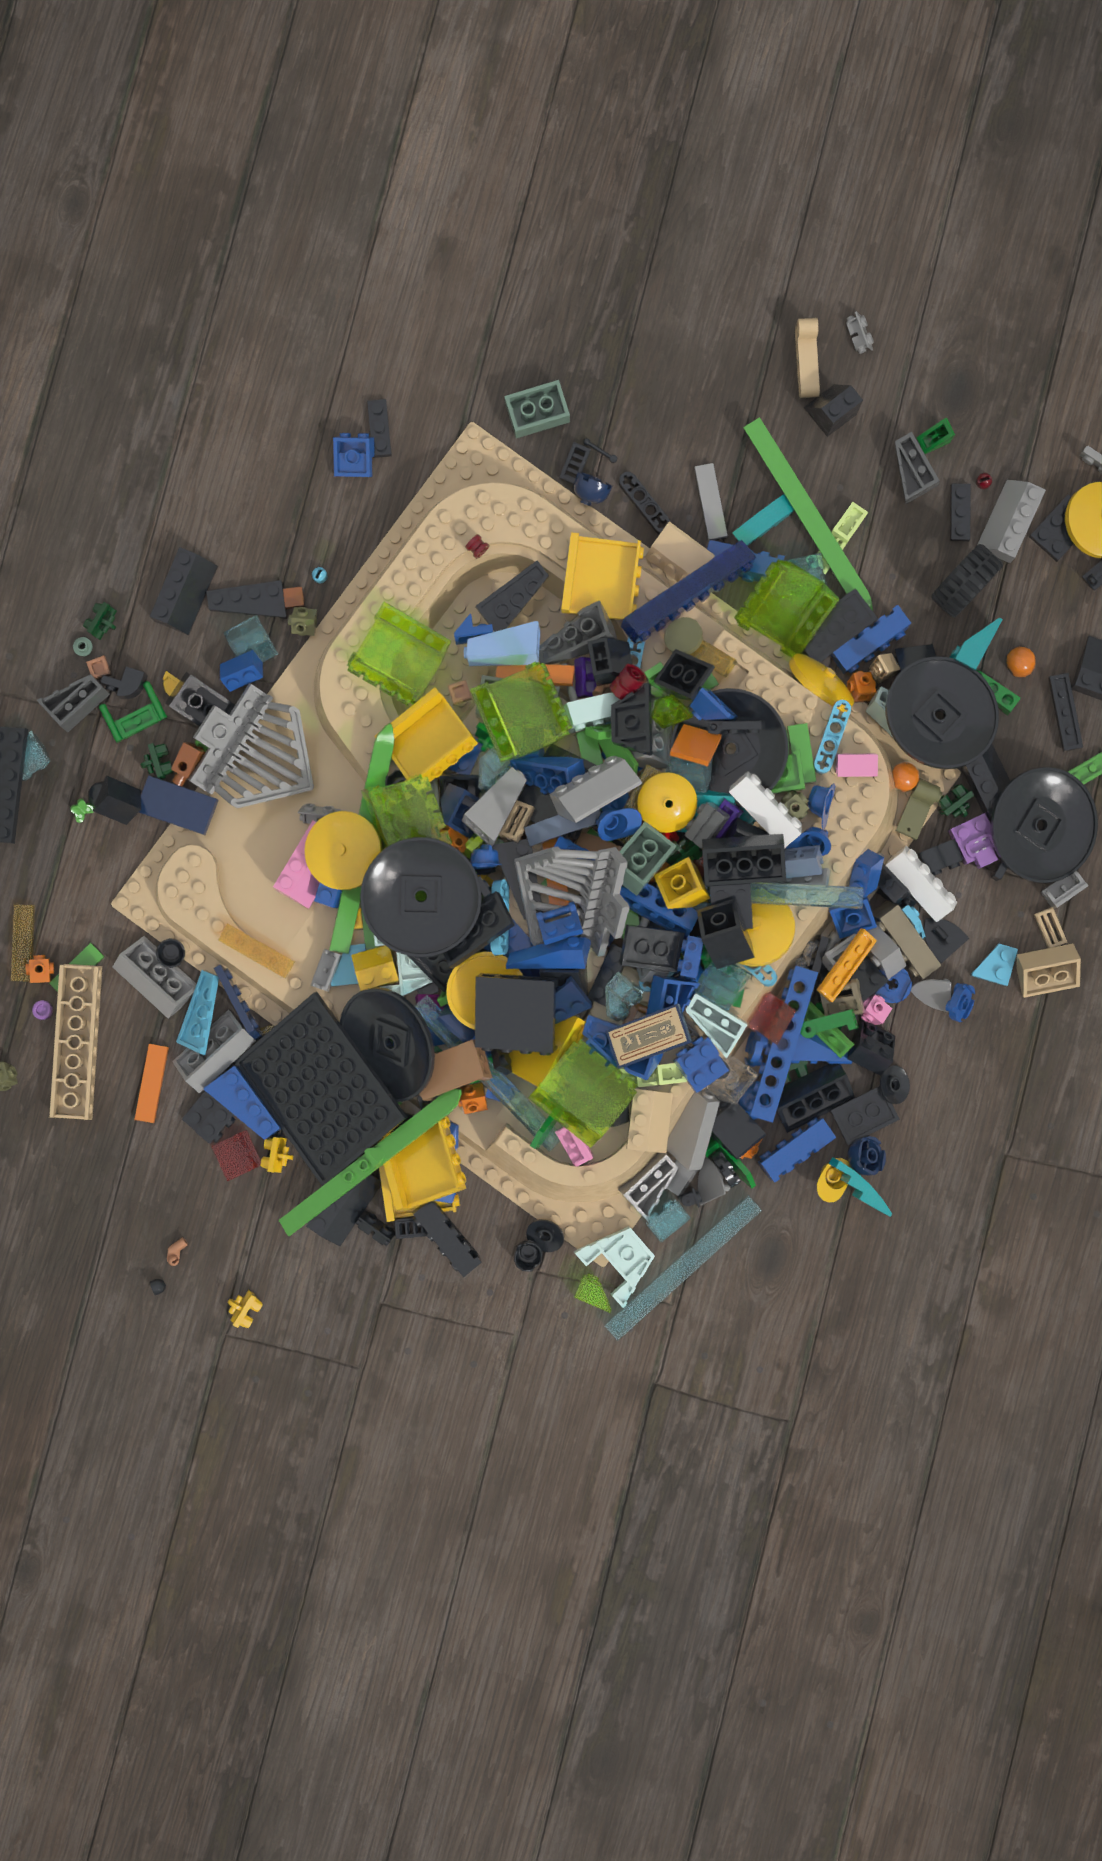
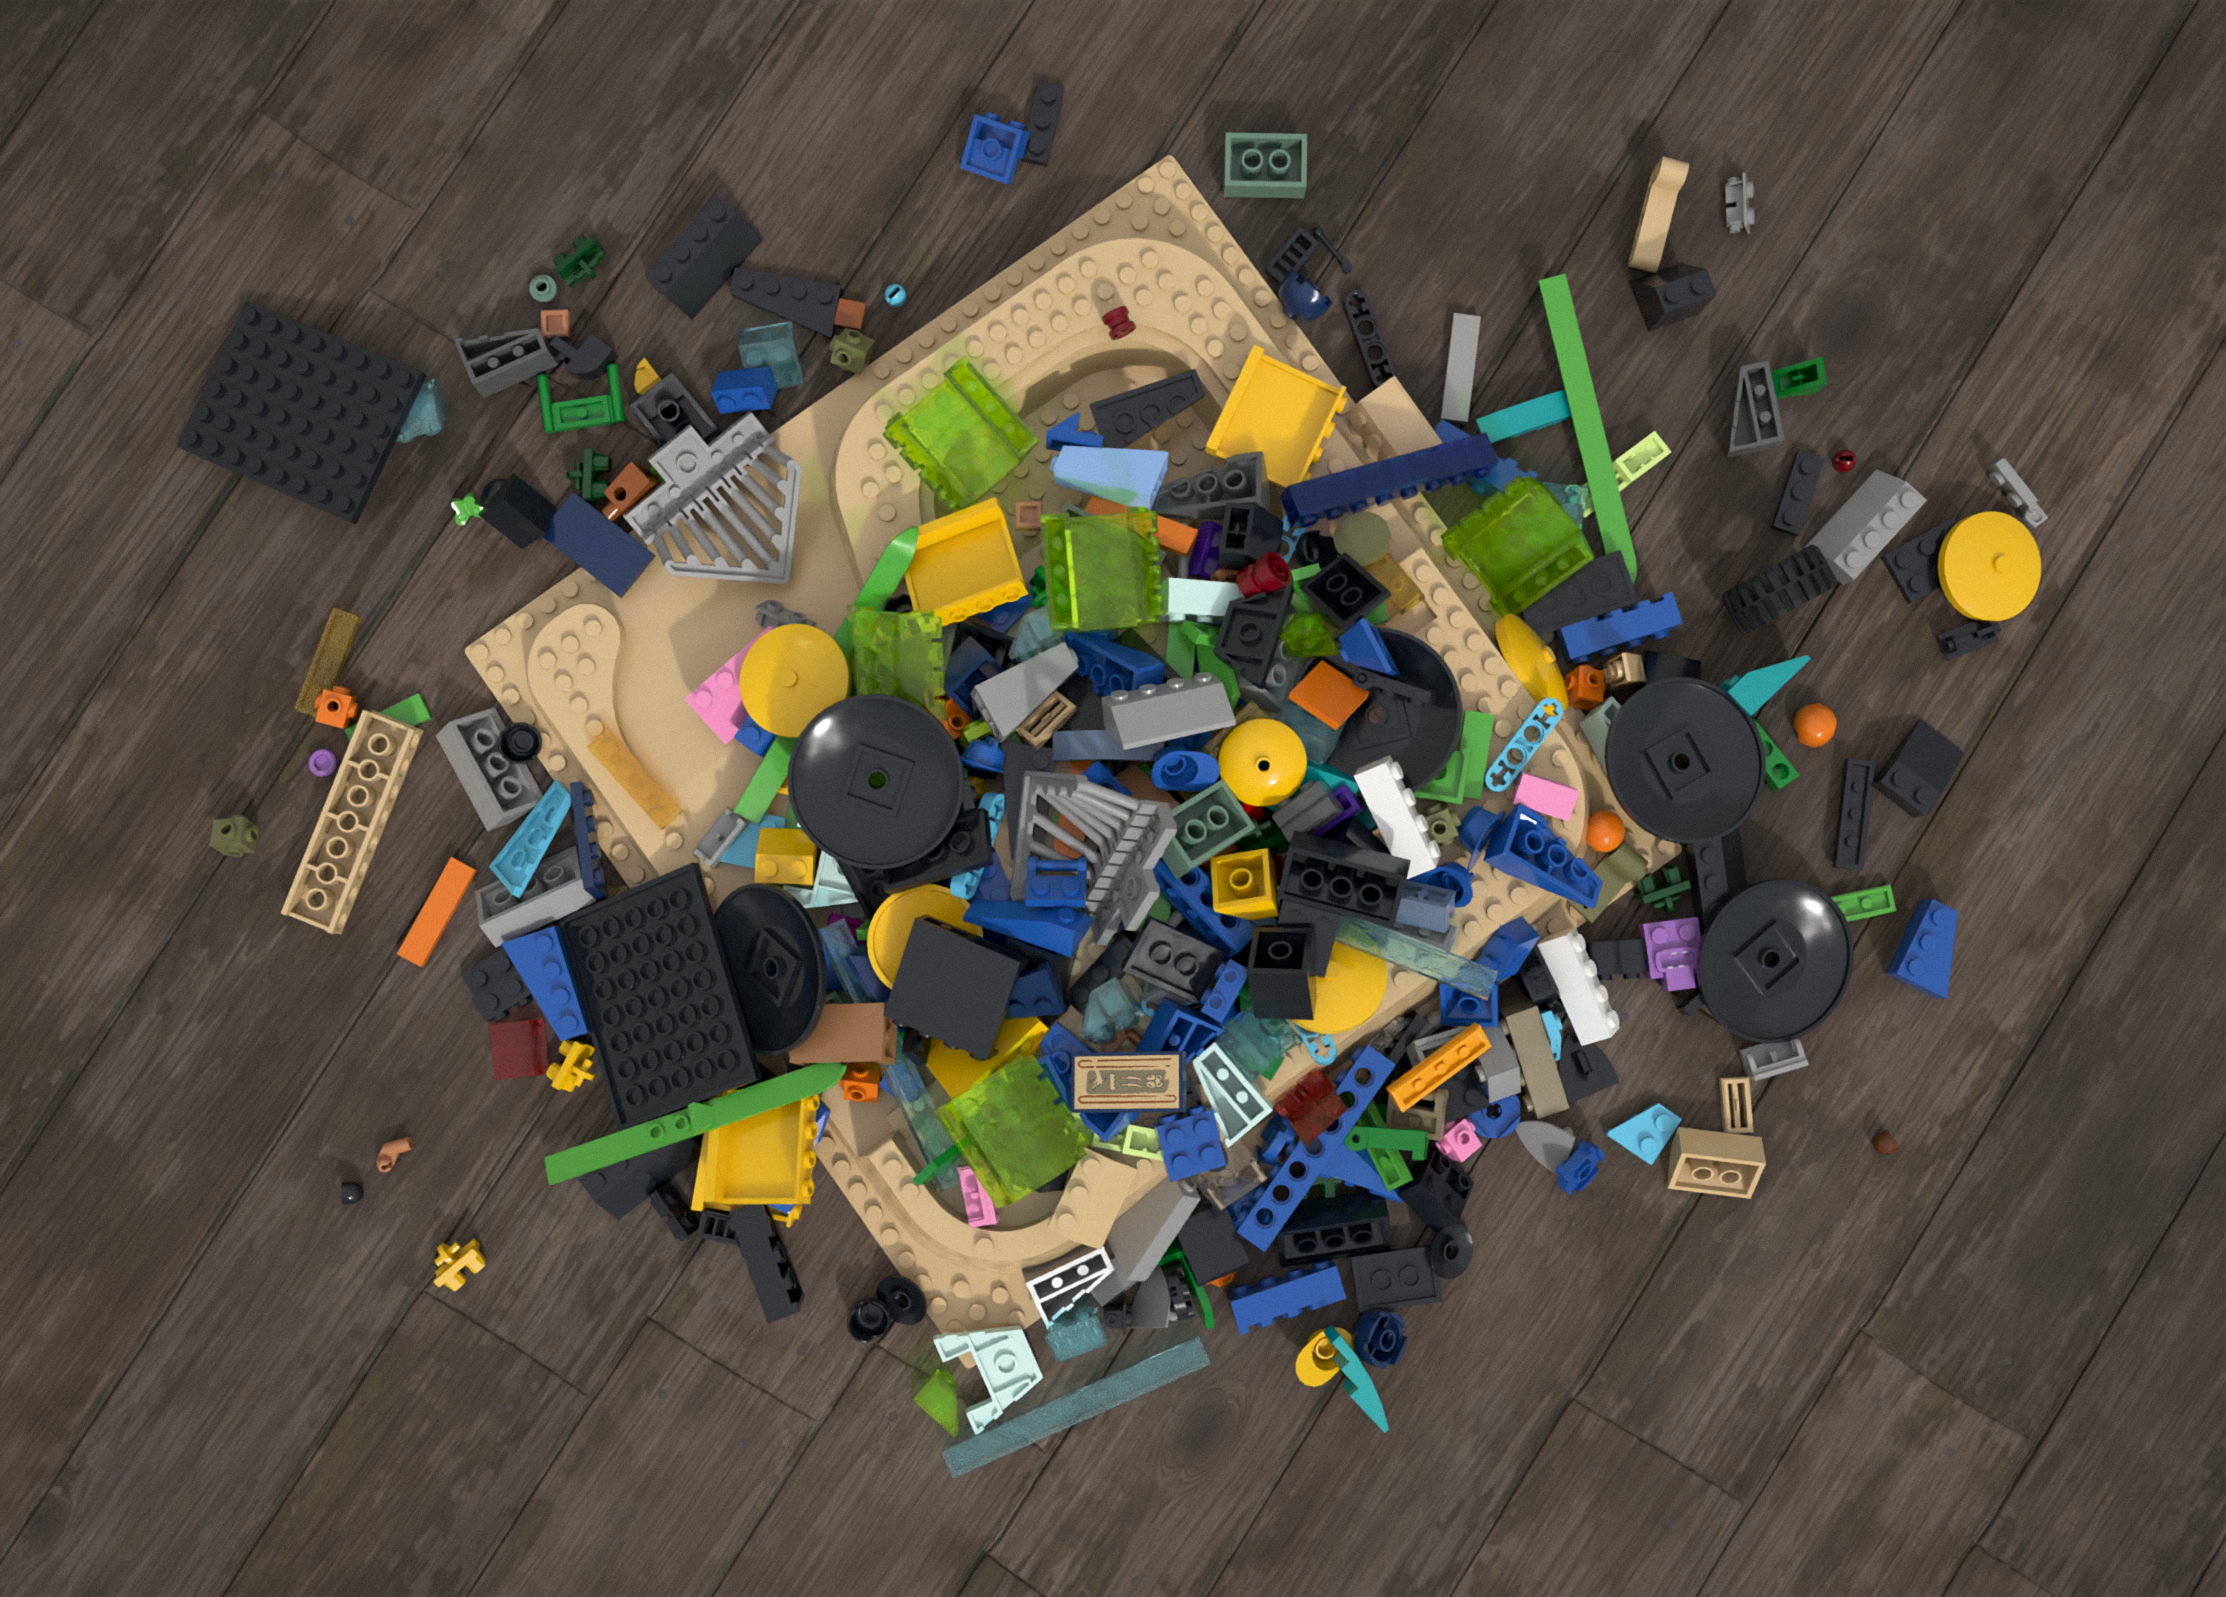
camera: 15 degrees right, 0 degrees up
(654, 653) = (1315, 549): none -> black hair
(862, 805) = (1534, 854): none -> blue wedge

